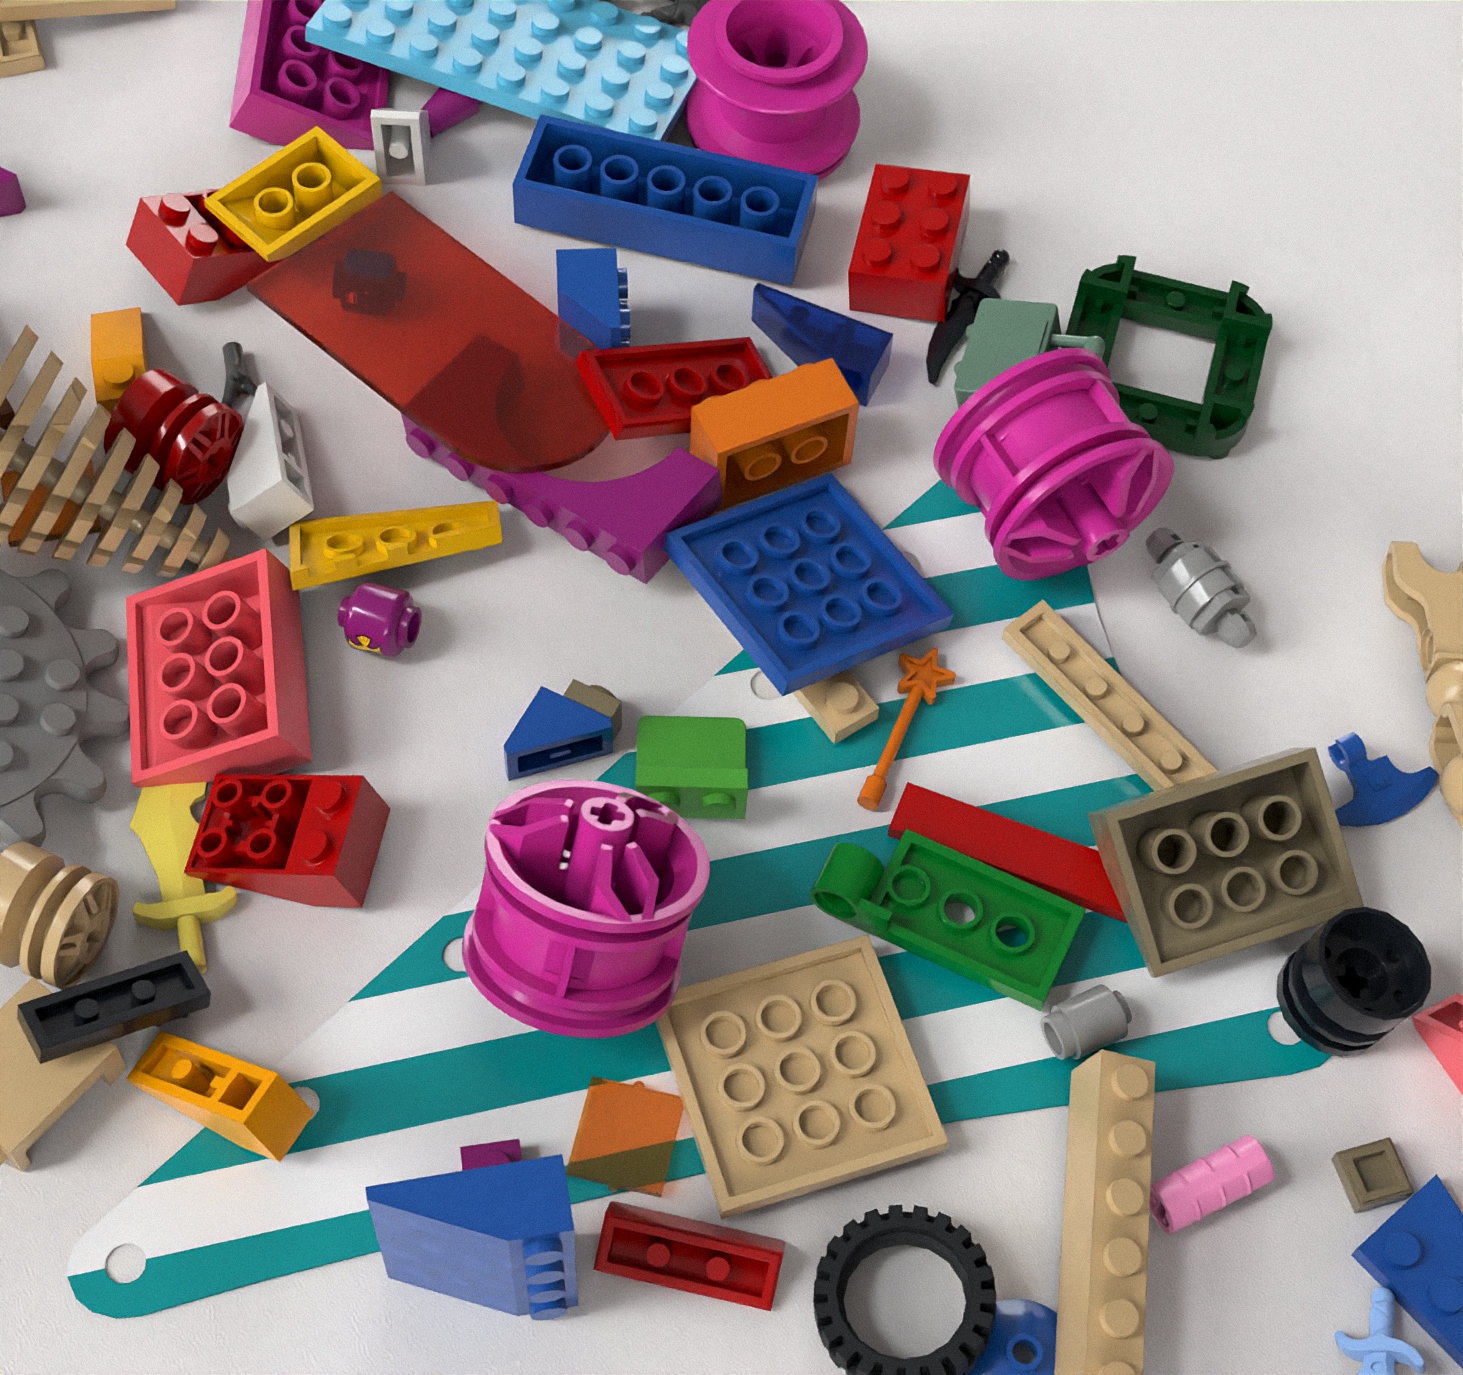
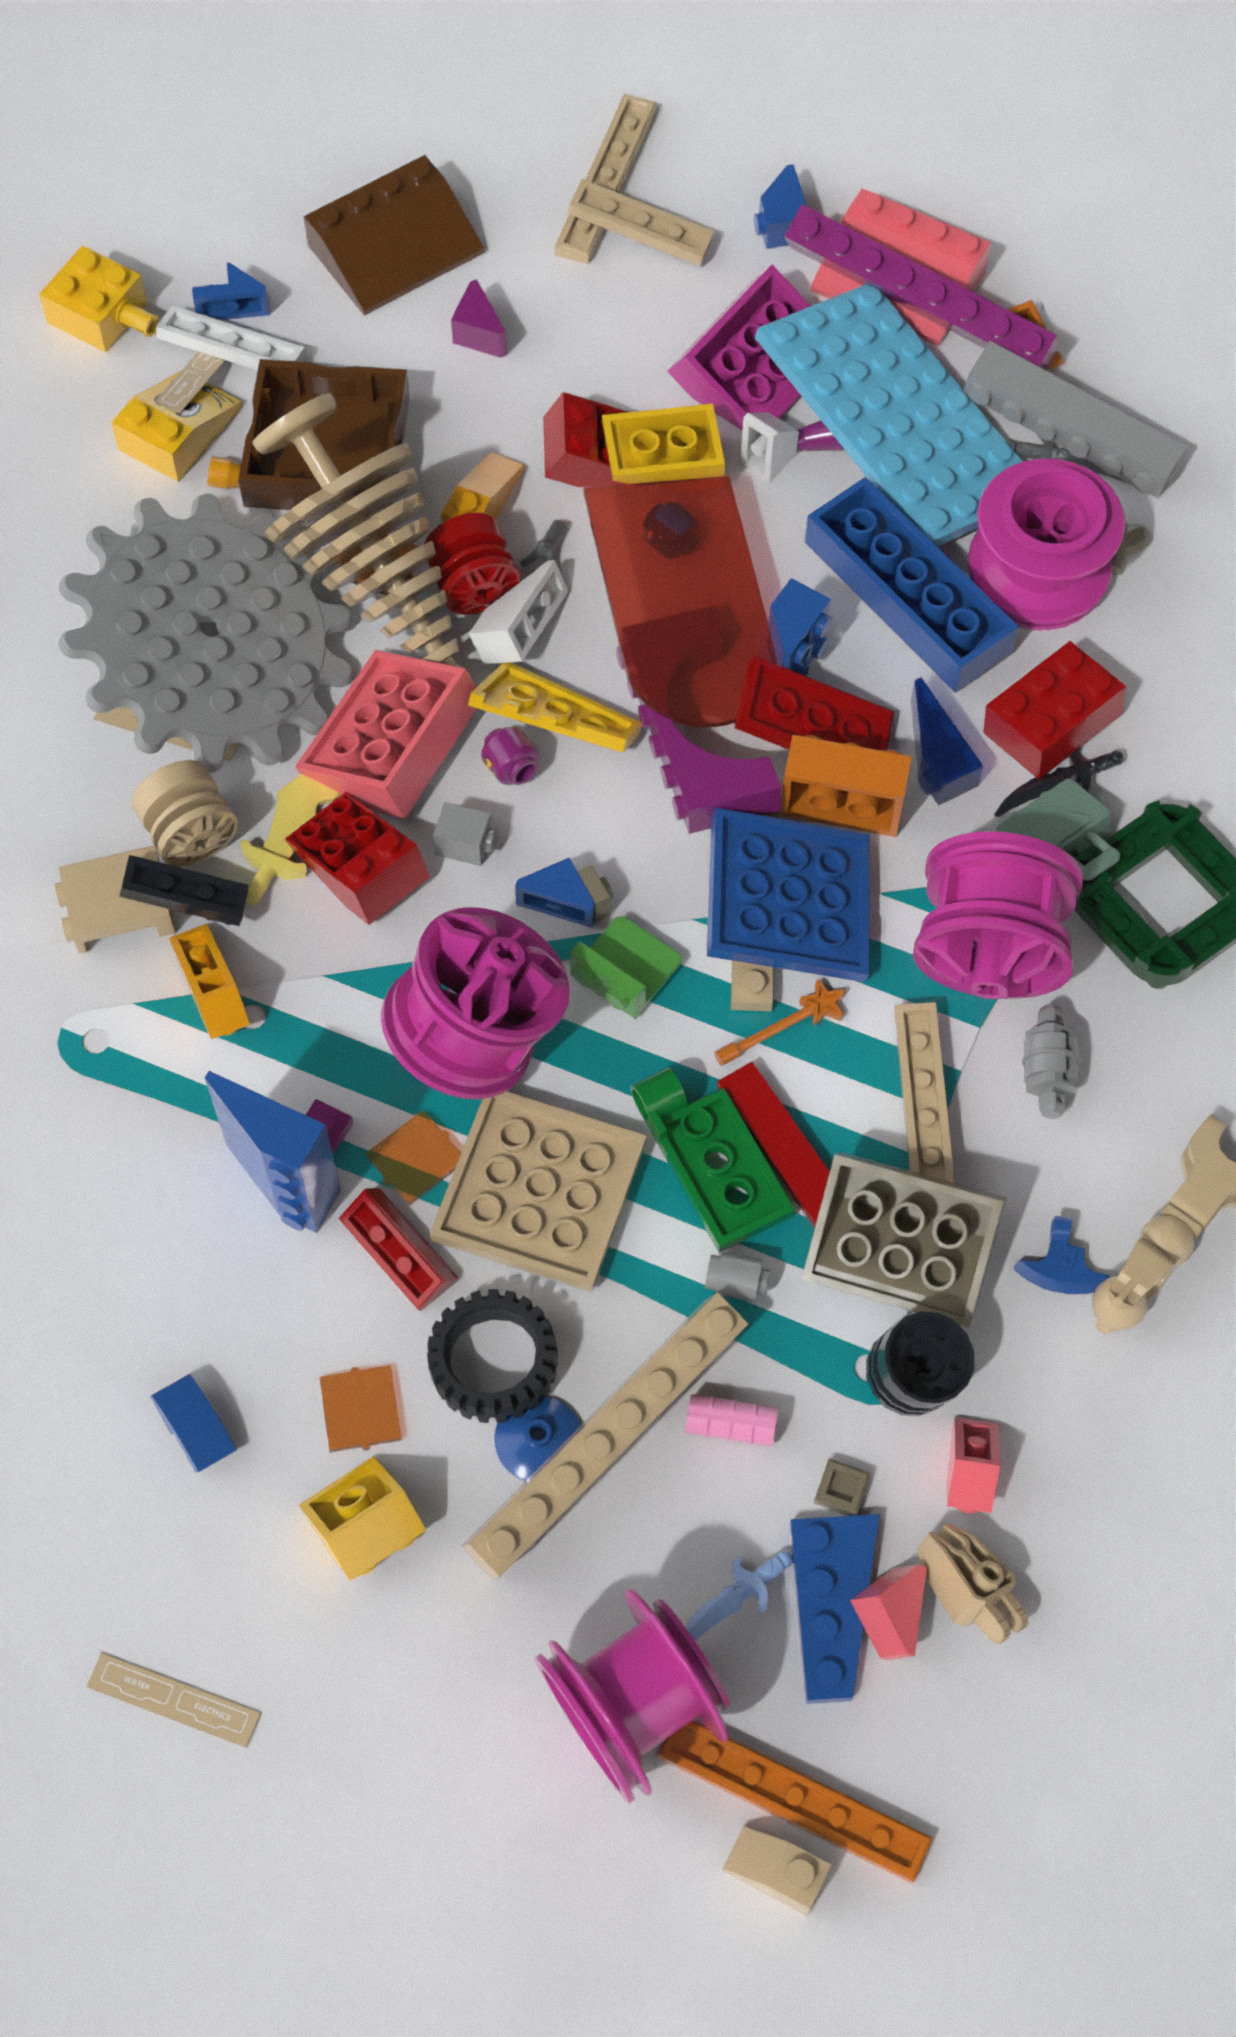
camera: 40 degrees right, 5 degrees up
(394, 736) = (463, 834): none -> light grey brick

